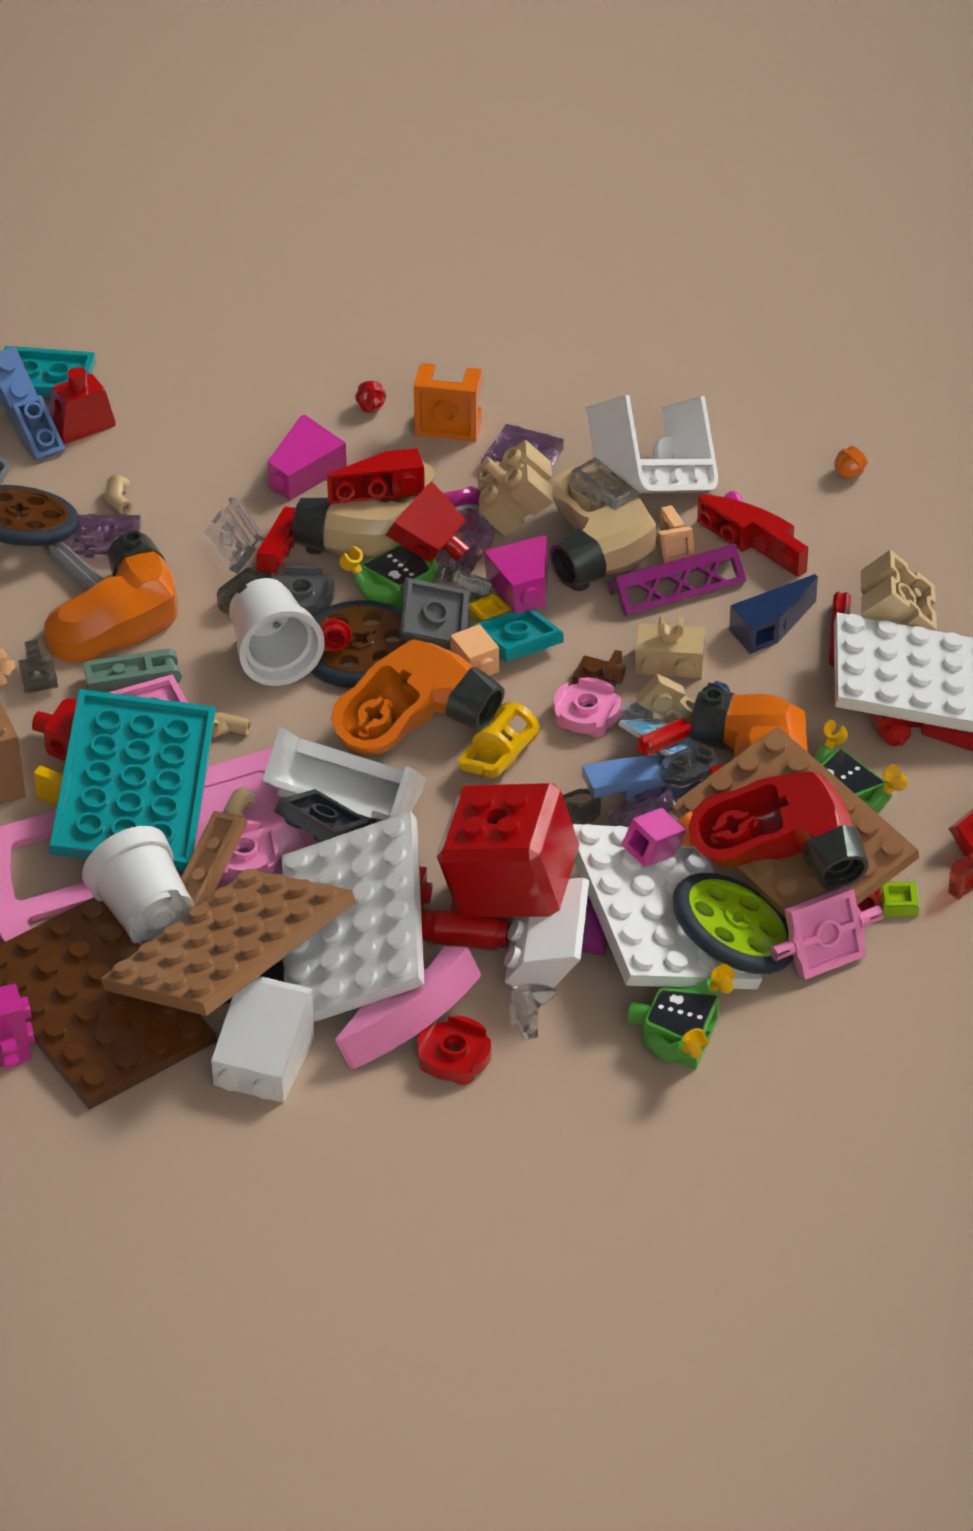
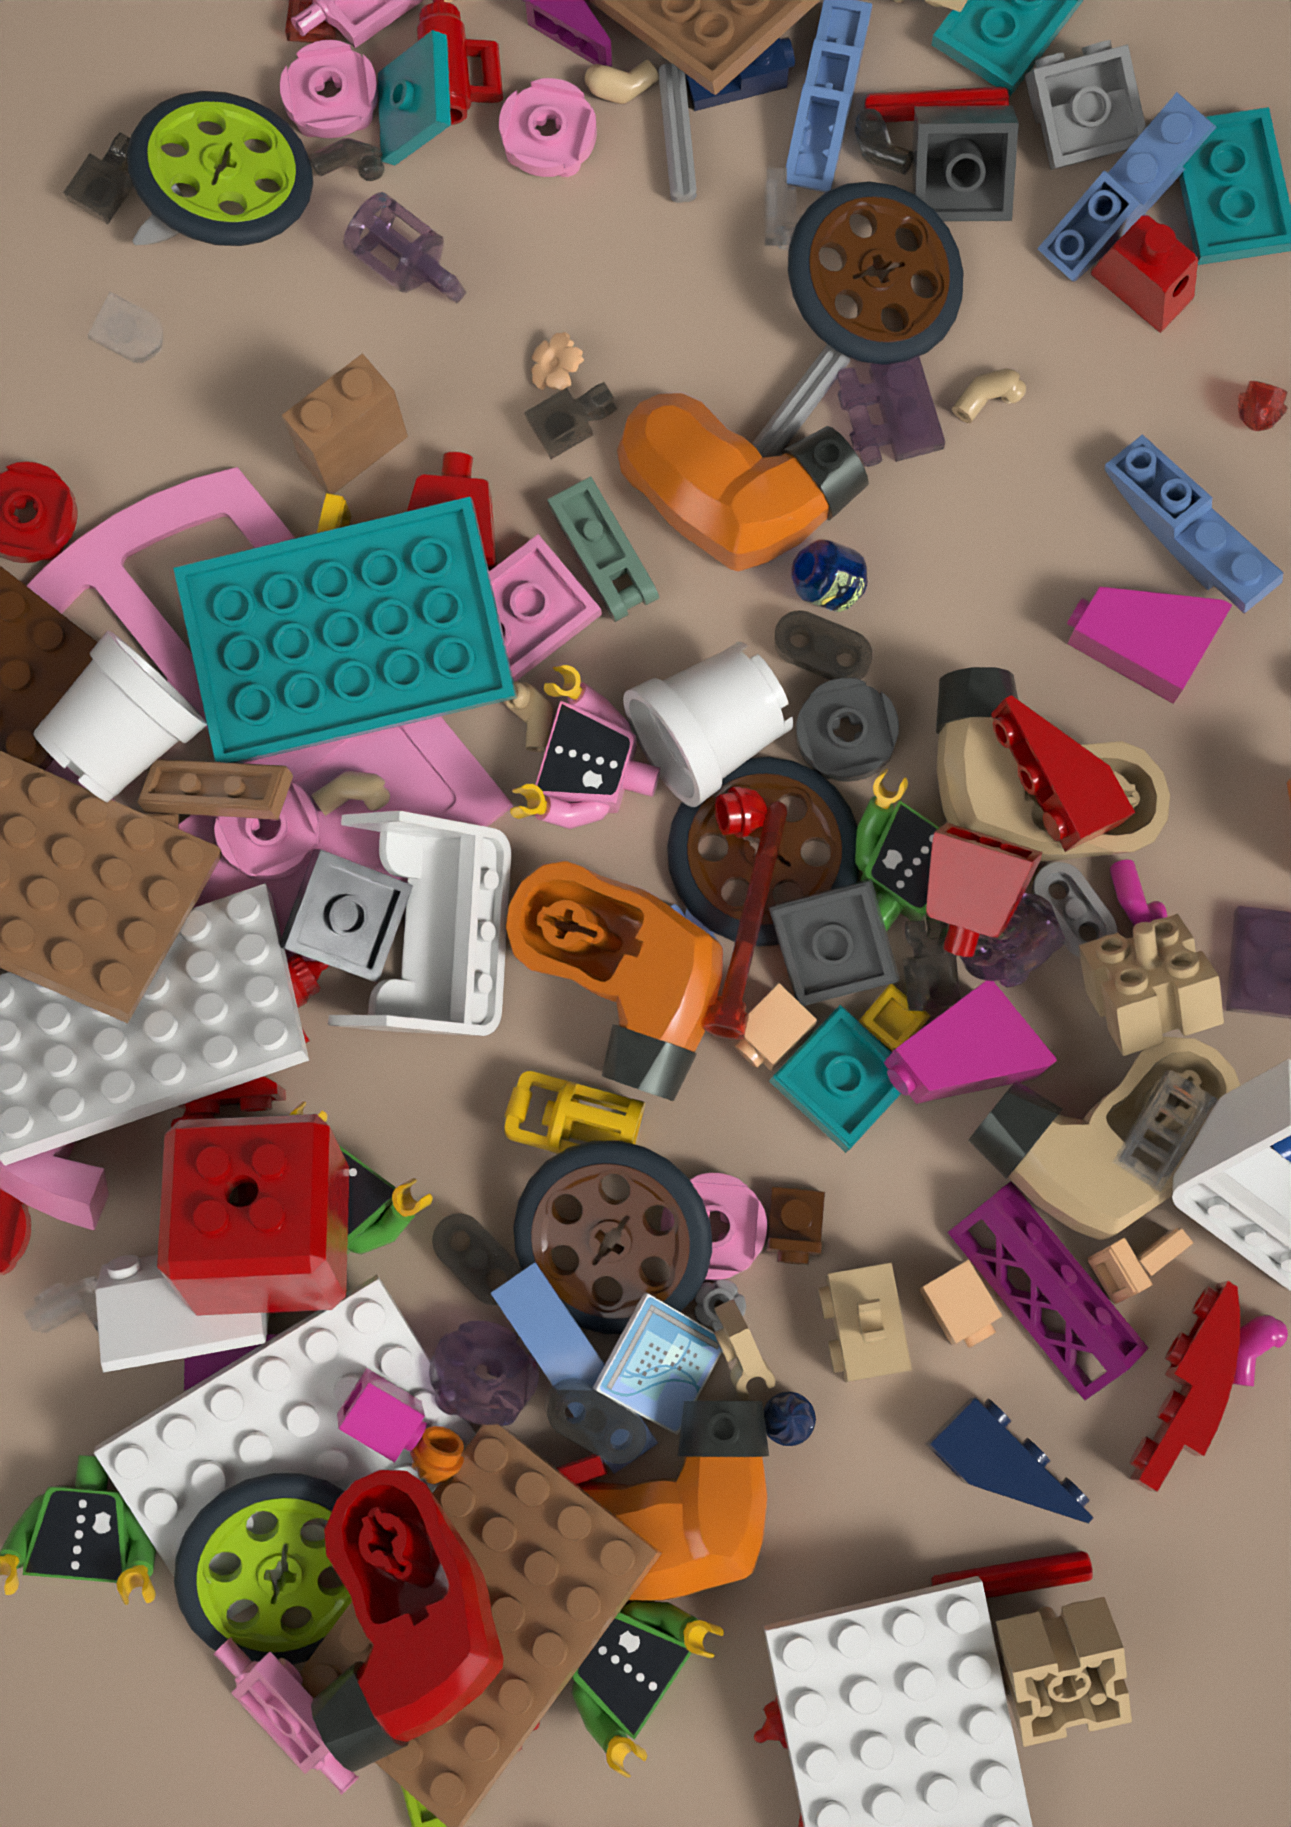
camera: 80 degrees right, 35 degrees up
(185, 388) = (1261, 405): none -> clear red plate
(202, 572) = (829, 575): none -> clear blue head
(234, 535) = (929, 593): clear plate -> none
(238, 433) = (1189, 527): none -> medium blue slope
(265, 697) = (585, 760): none -> torso
(277, 542) = (928, 662): red piece -> none
(465, 649) = (727, 1015): none -> clear red piece
(553, 702) = (652, 1182): none -> reddish brown wedge
(663, 737) = (617, 1372): red axle -> none
(673, 604) = (962, 1305): none -> light nougat brick

